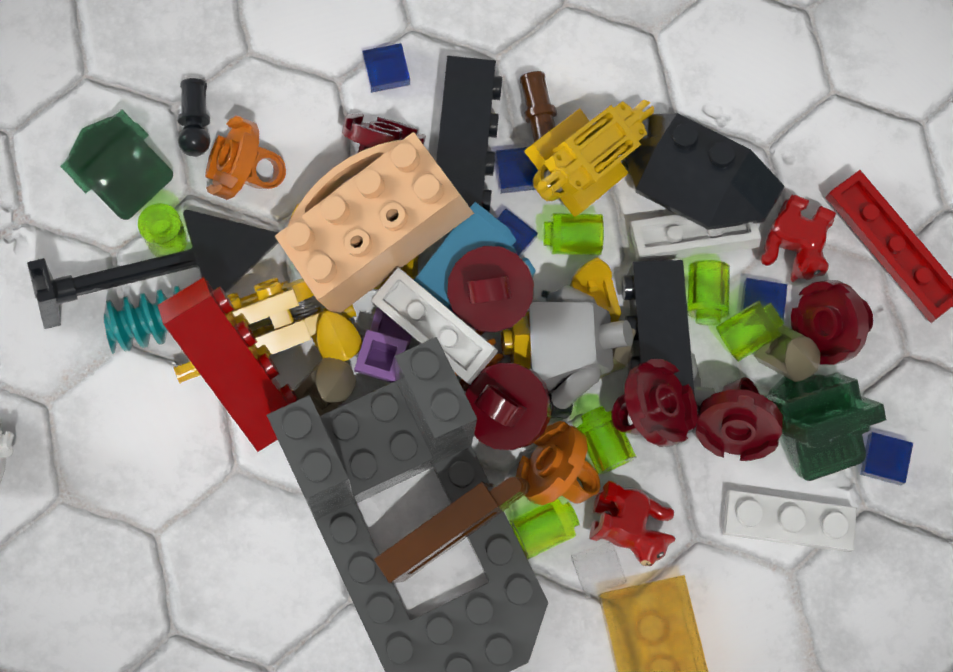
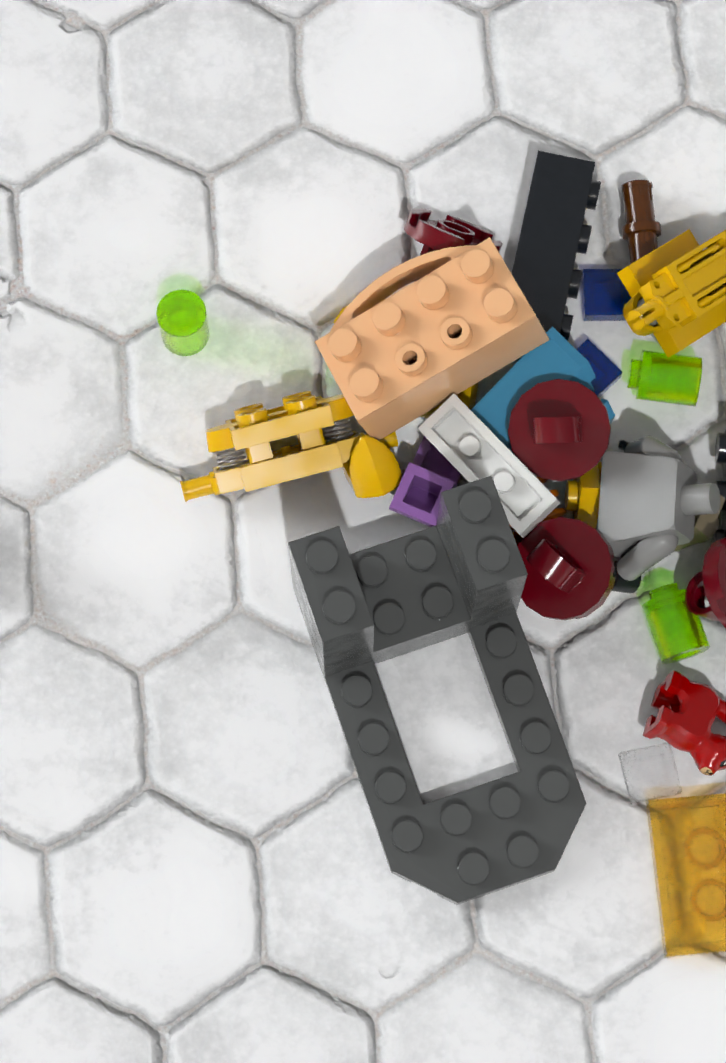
camera: 15 degrees right, 0 degrees up
(117, 164) = (138, 238): clear green piece -> none
(135, 322) = (157, 423): teal piece -> none
(193, 138) = (229, 218): black pin -> none
(219, 249) = (246, 353): black piece -> none
(226, 359) = (246, 478): red brick -> none
(235, 161) = (275, 247): orange tile -> none
(327, 384) = (361, 518): dark tan plate -> none
(386, 67) = (463, 157): clear blue tile -> none
(449, 528) = (481, 701): reddish brown hinge -> none
(545, 527) = (592, 716): clear neon green brick -> none
(556, 466) = (613, 646): orange tile -> none
(596, 280) = (686, 434): yellow plate -> none

